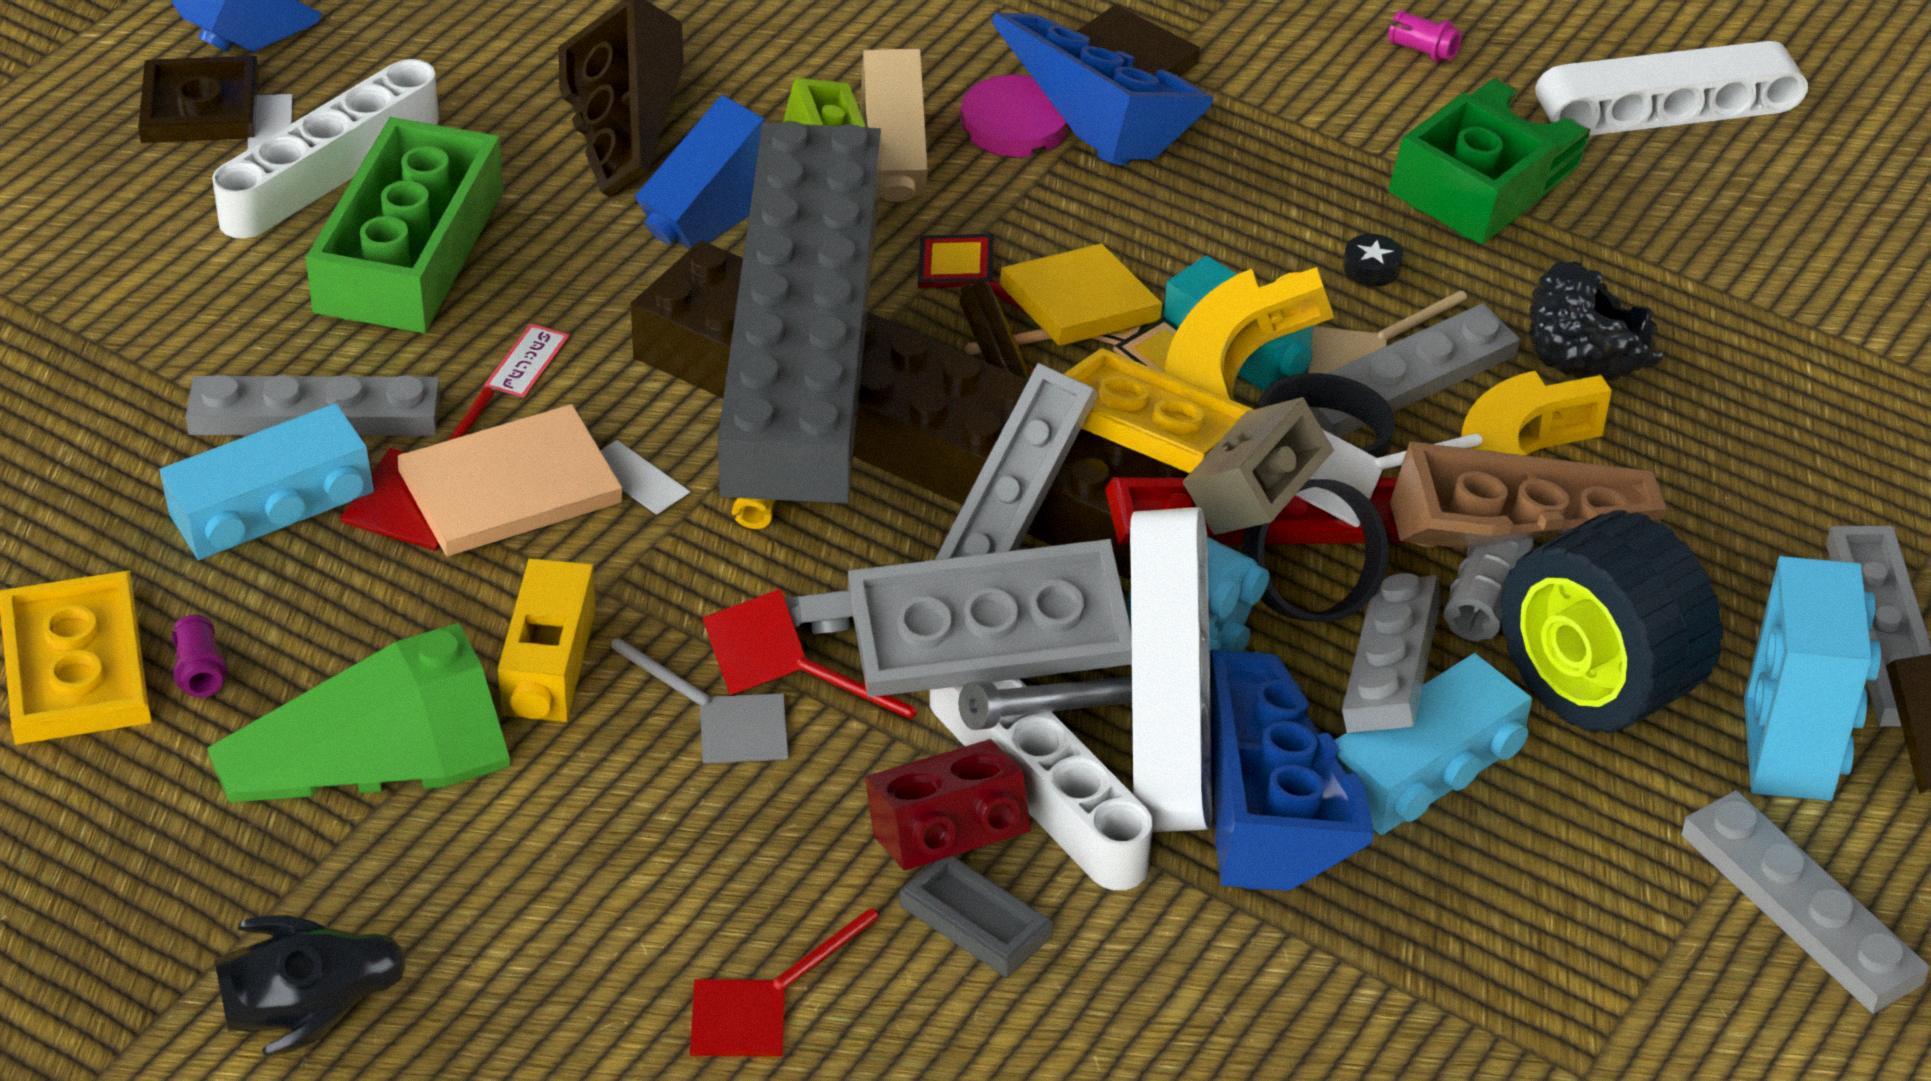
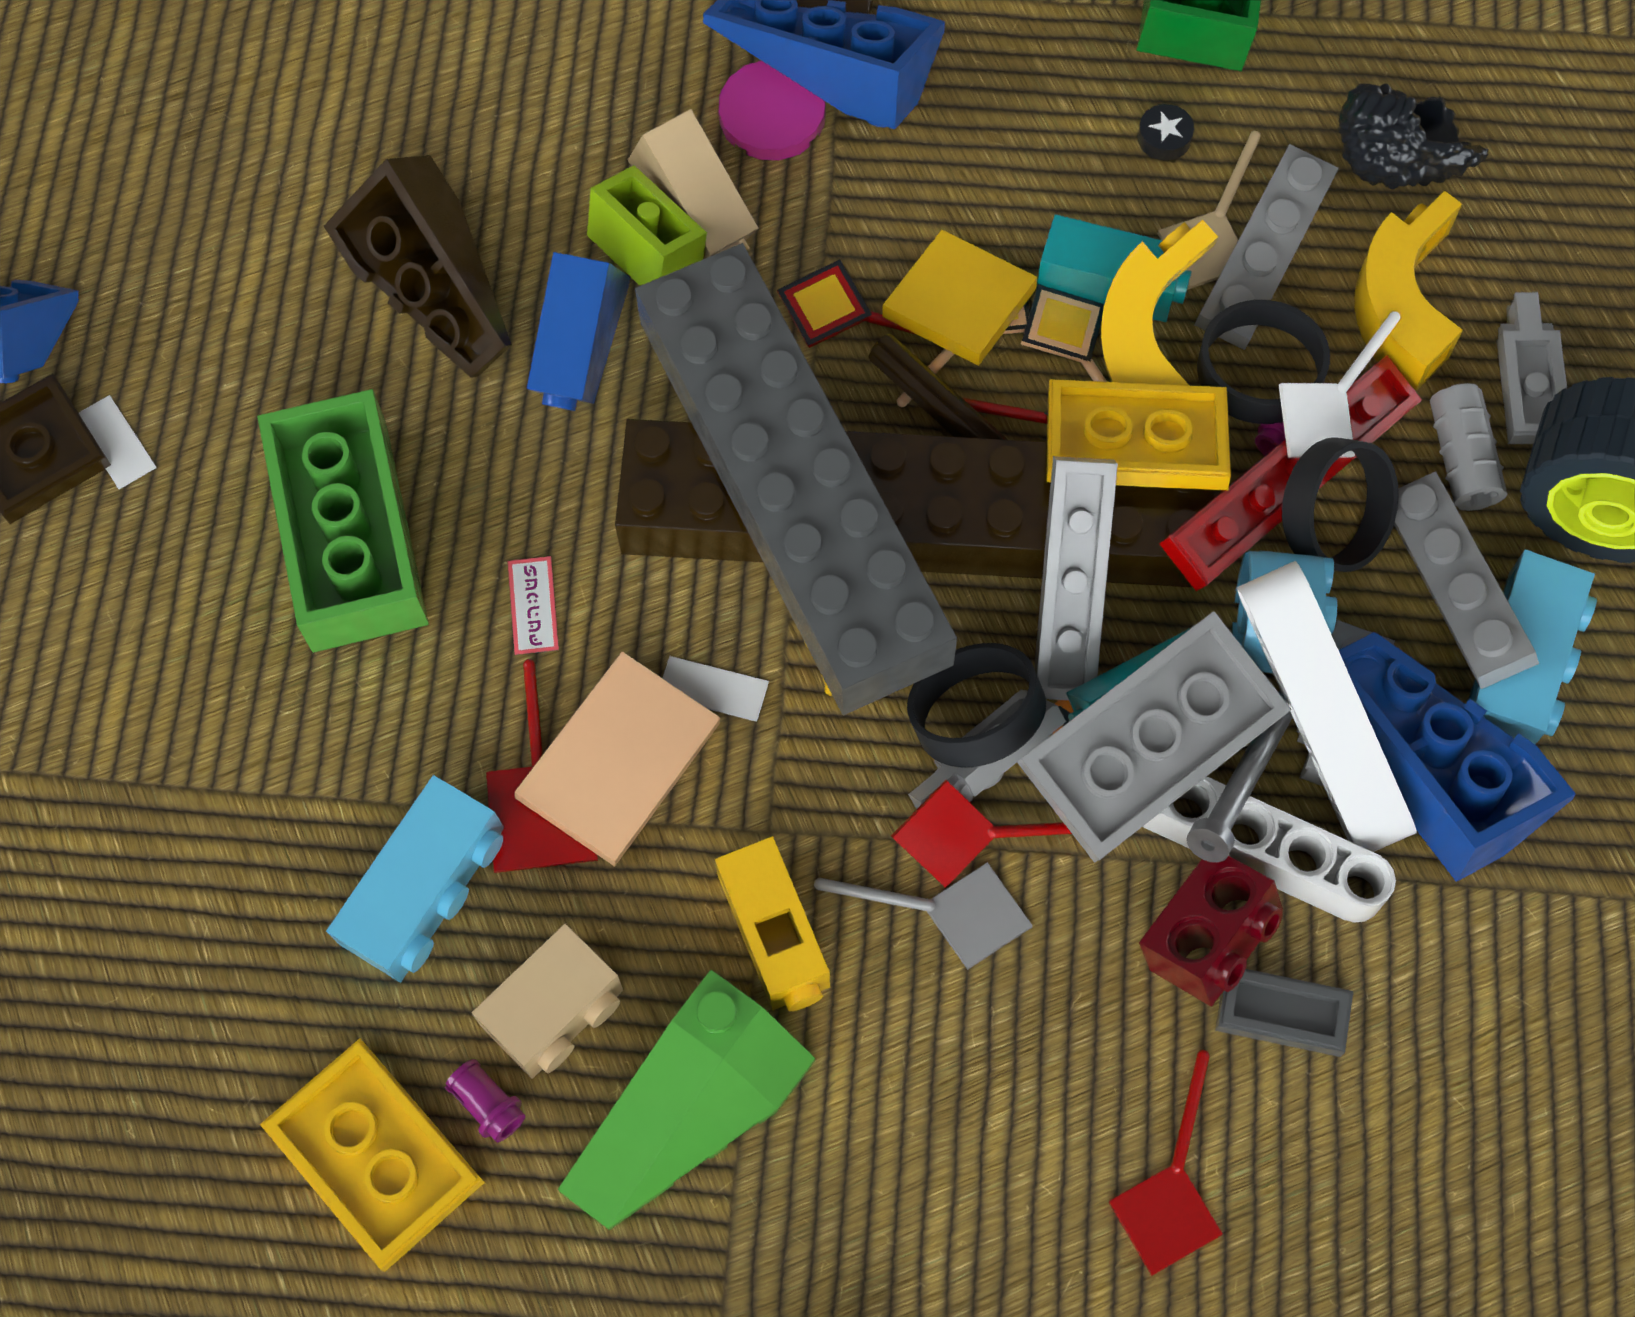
camera: 25 degrees left, 25 degrees up
(307, 609) = (550, 1002): none -> tan brick
(319, 149) = (205, 480): white beam -> none
(370, 404) = (386, 760): light grey plate -> none
(821, 557) = (992, 744): none -> black tyre
(1258, 466) = (1286, 469): dark tan brick -> none
(1497, 497) = (1476, 384): medium nougat wedge -> none

